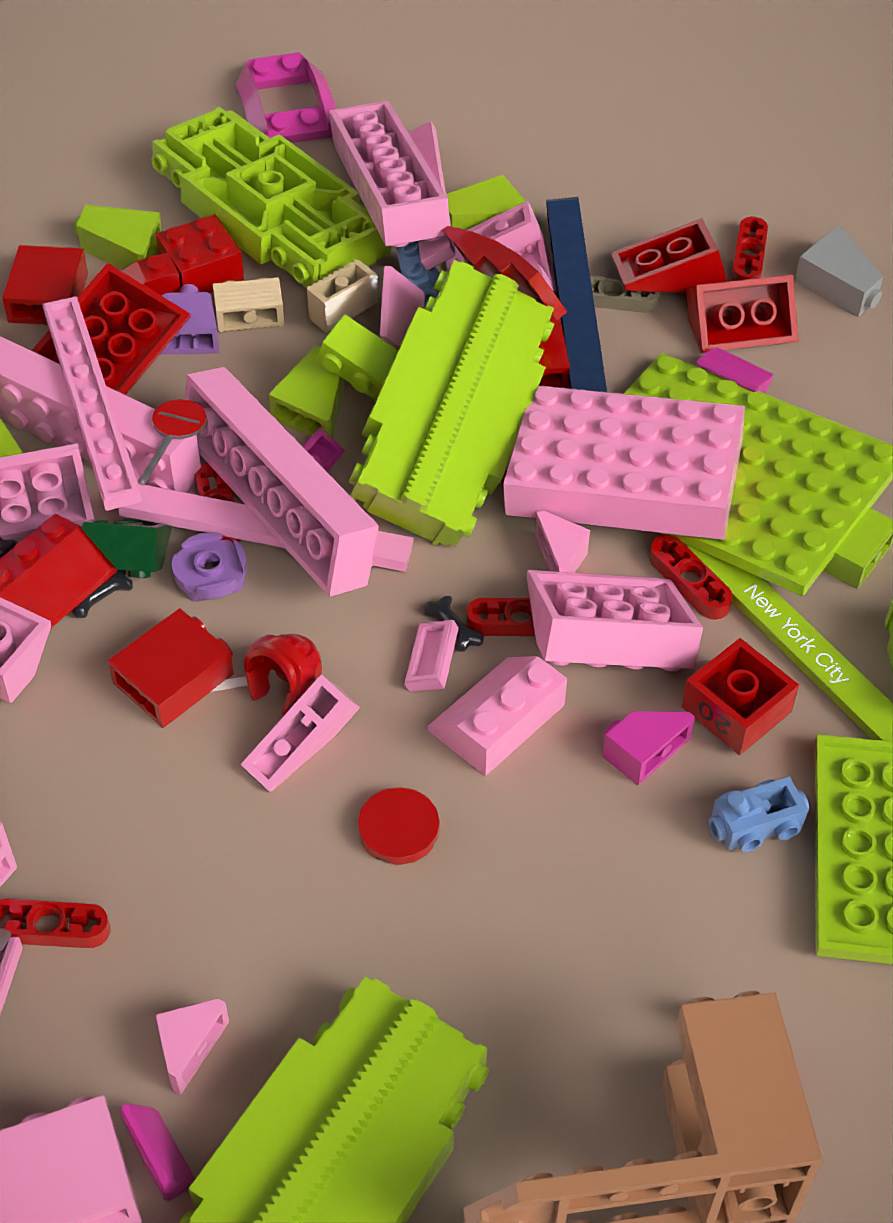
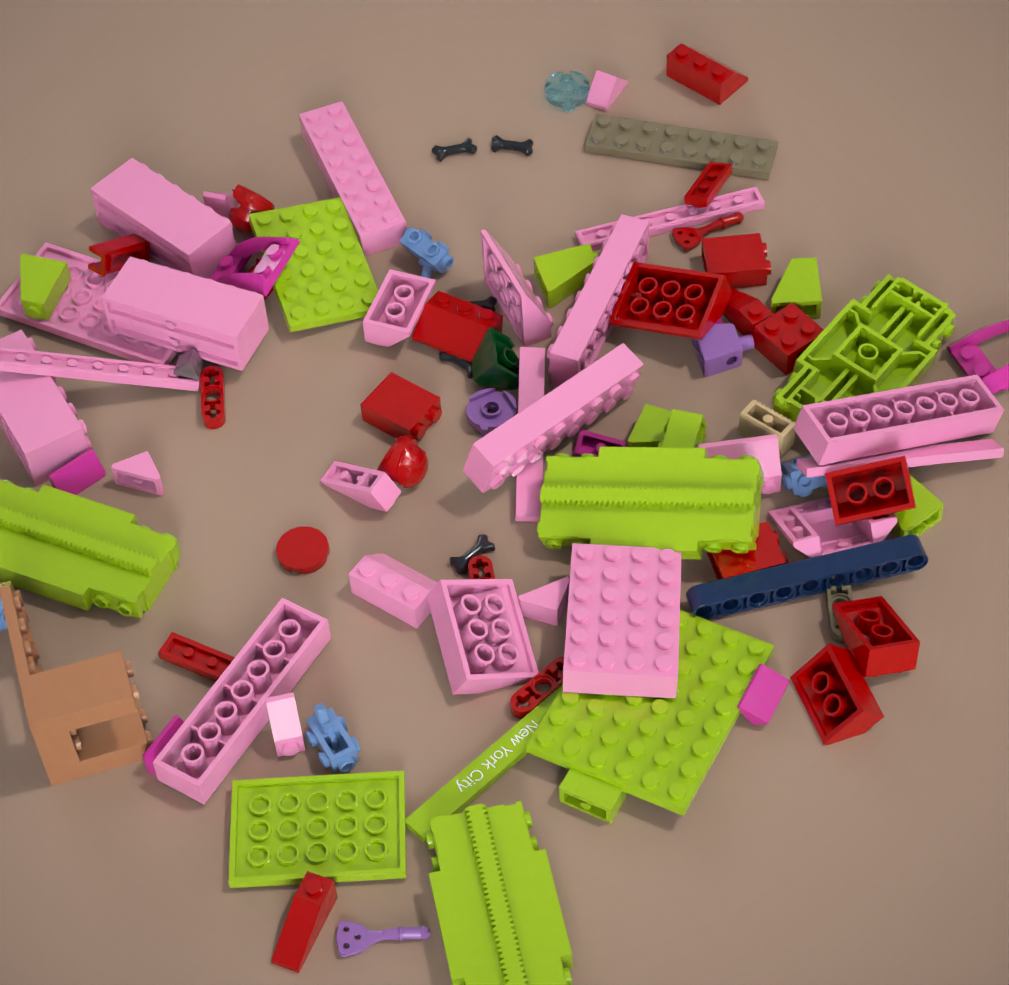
camera: 85 degrees right, 0 degrees up
(92, 404) = (586, 299): bright pink tile -> none
(174, 420) = (578, 349): red piece -> none
(248, 304) = (749, 377): tan brick -> none
(431, 656) = (438, 544): bright pink tile -> none
(489, 202) = (870, 490): none -> red slope
(495, 258) = (788, 507): red slope -> none
(585, 979) = (194, 656): none -> red plate
(645, 741) = (381, 671): dark pink slope -> none
(681, 912) = (236, 704): none -> bright pink brick
(737, 864) = (285, 724): none -> bright pink slope
(739, 696) = (425, 718): red brick -> none
(755, 244) = (914, 707): red beam -> none
(840, 273) = (913, 764): light grey slope -> none

